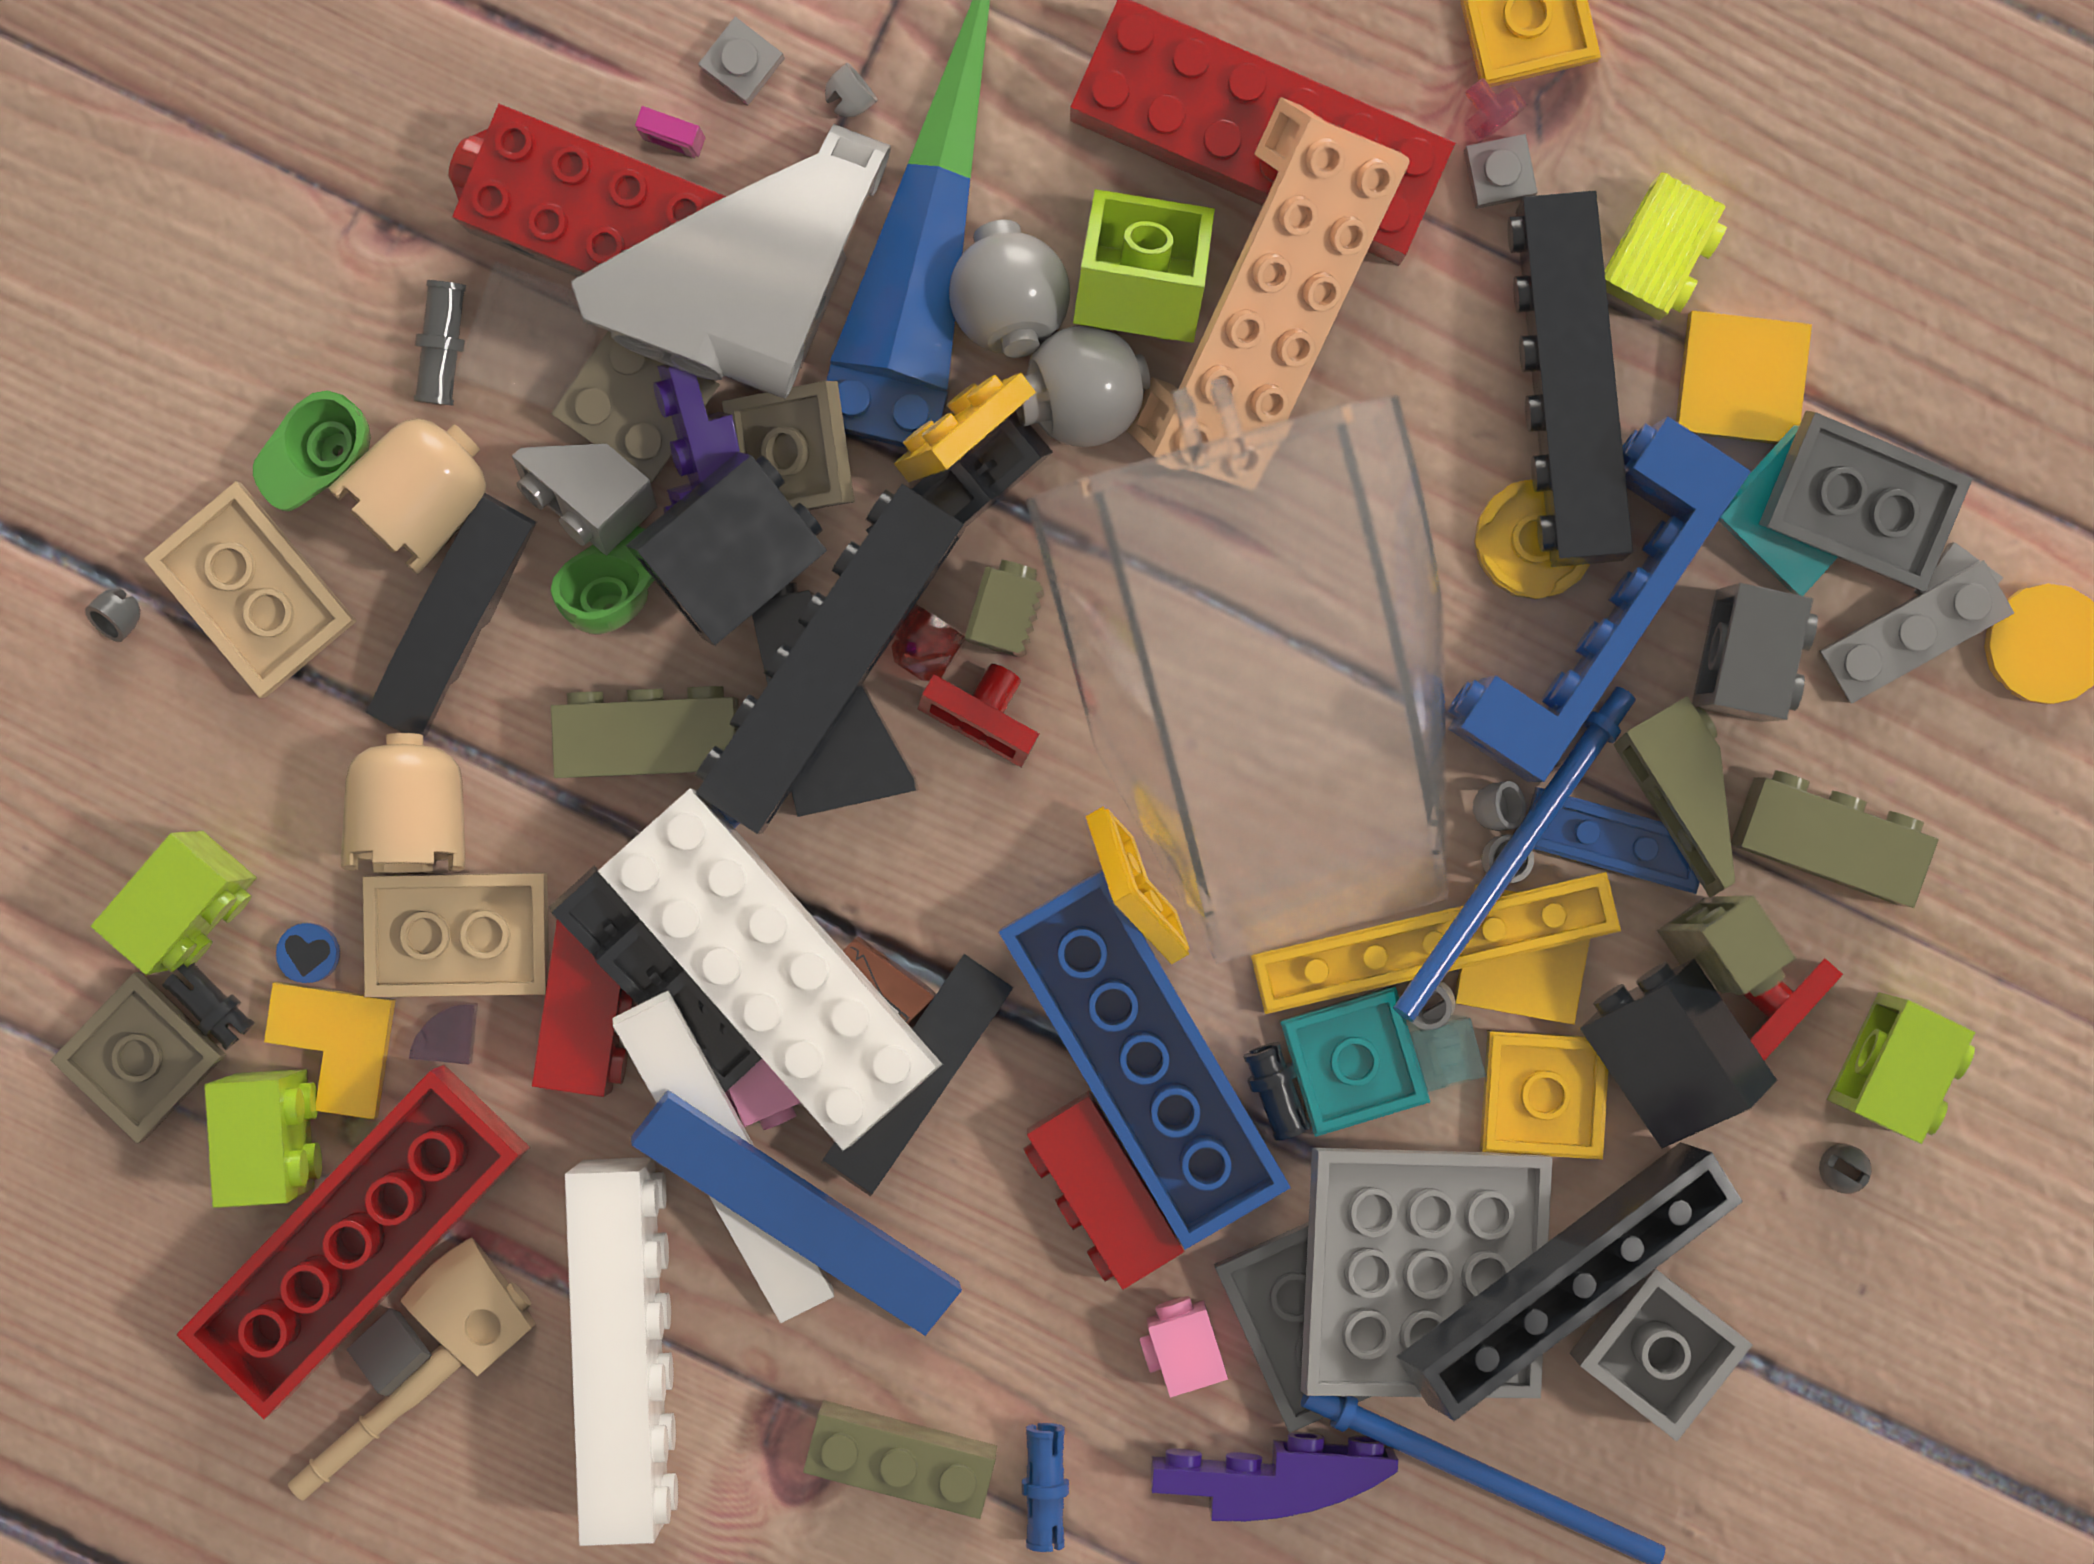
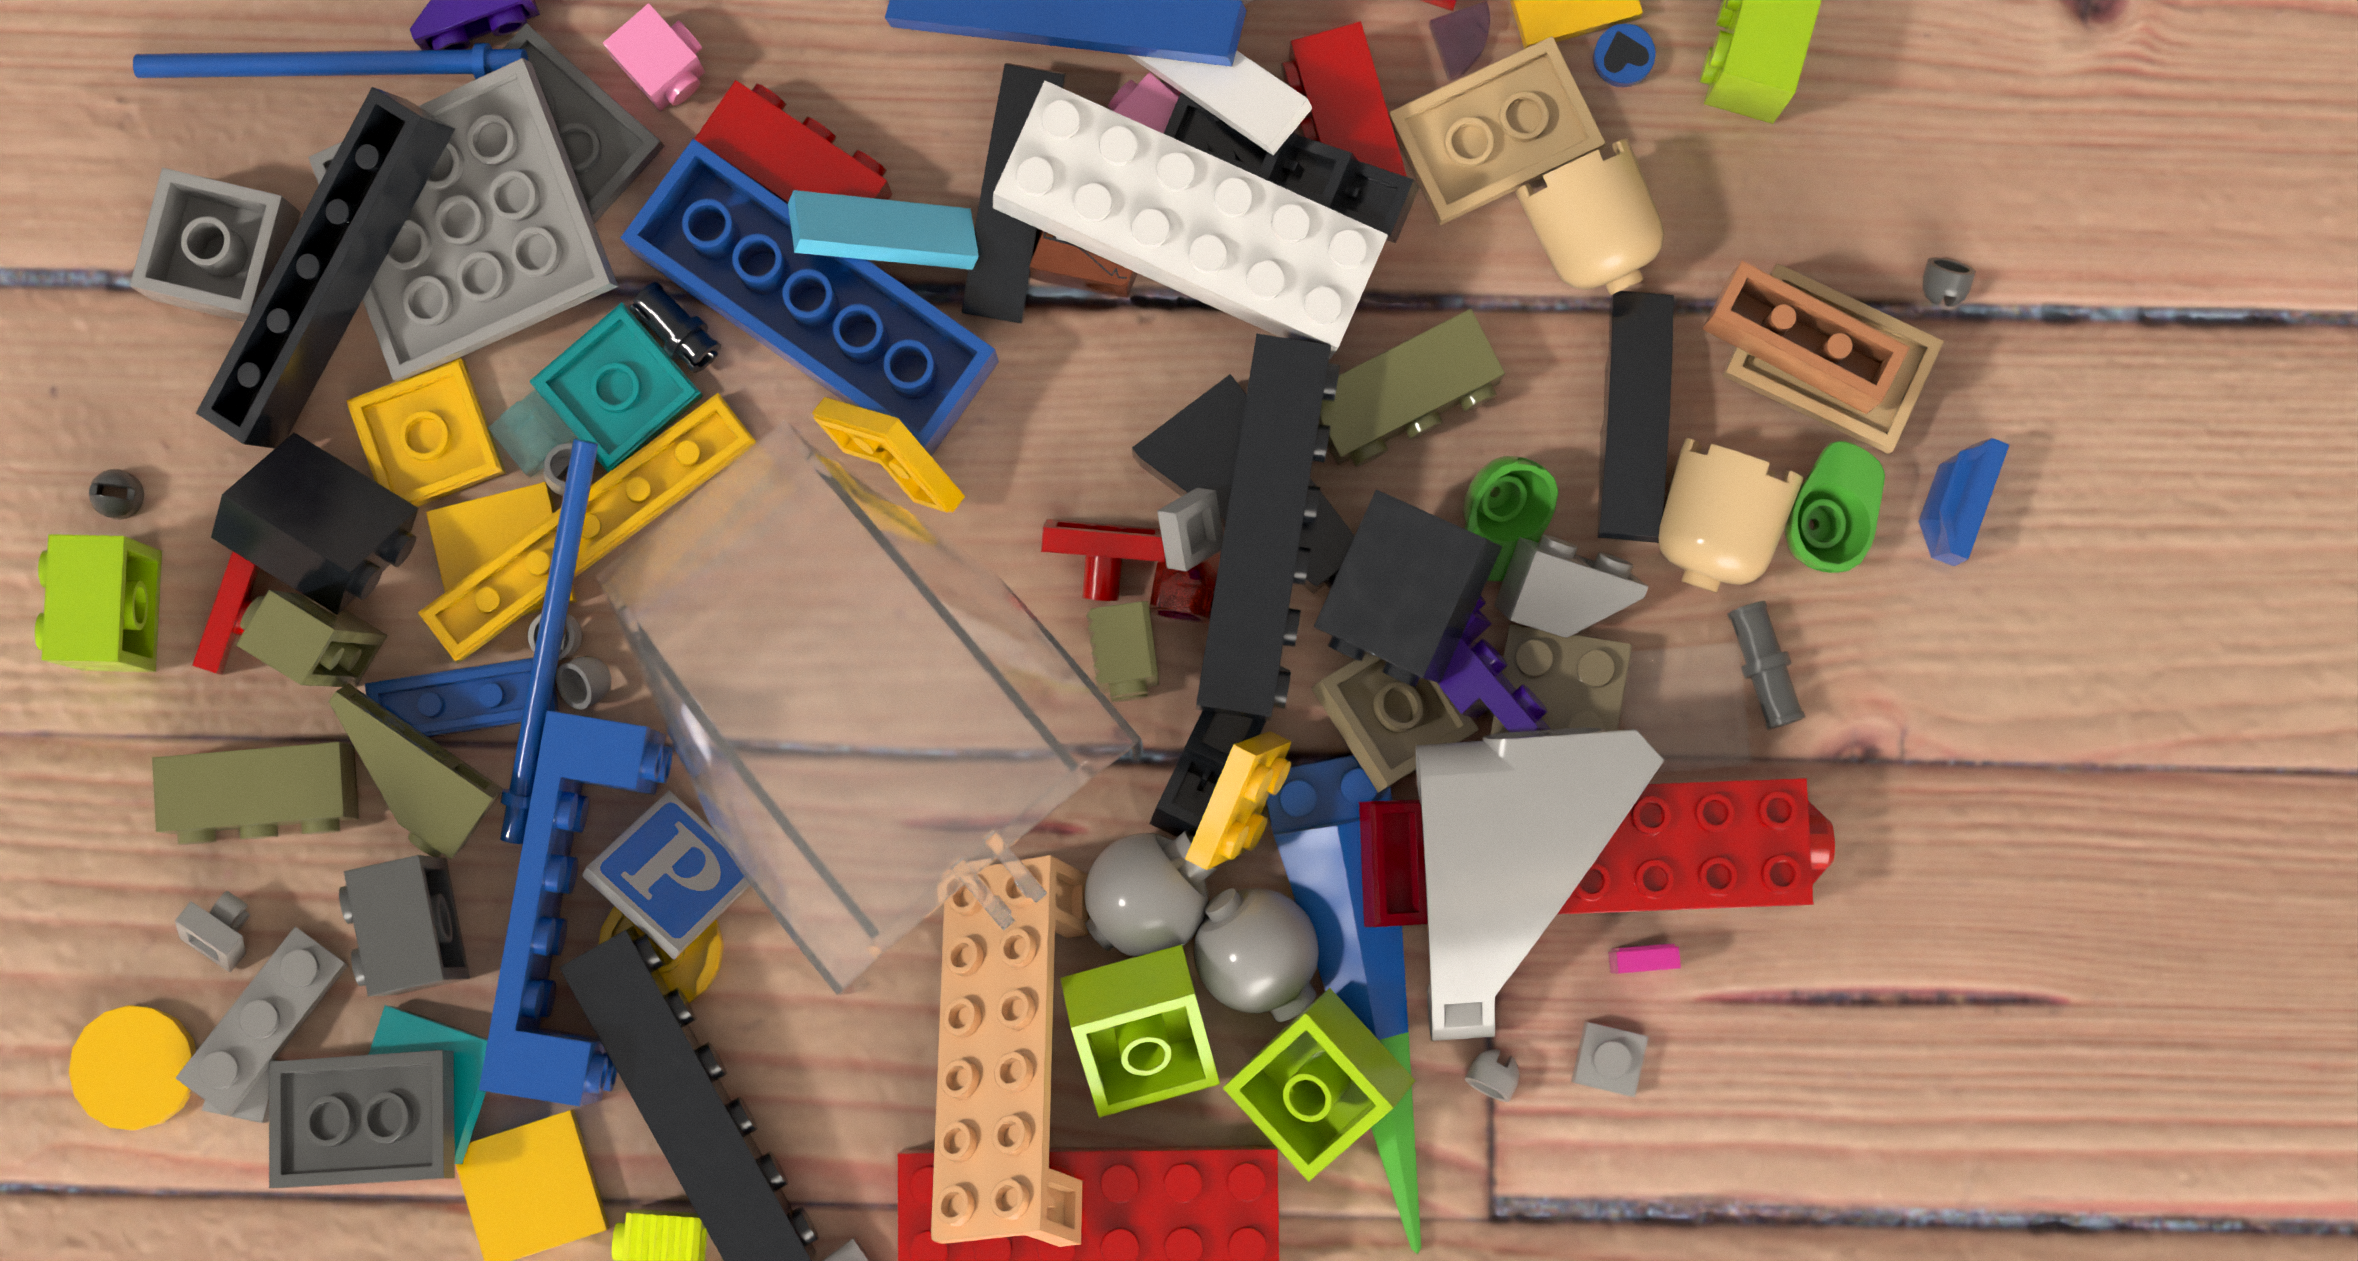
camera: 155 degrees right, 5 degrees down
(196, 410) = (1960, 500): none -> blue slope
(266, 611) = (1805, 338): none -> nougat brick
(852, 314) = (1393, 863): none -> dark red tile
(896, 689) = (1191, 529): none -> light grey plate
(1007, 147) = (1319, 1084): none -> lime brick
(1051, 1088) = (882, 230): none -> medium azure tile
(1500, 596) = (668, 874): none -> tile
(1924, 729) = (215, 932): none -> light grey tile

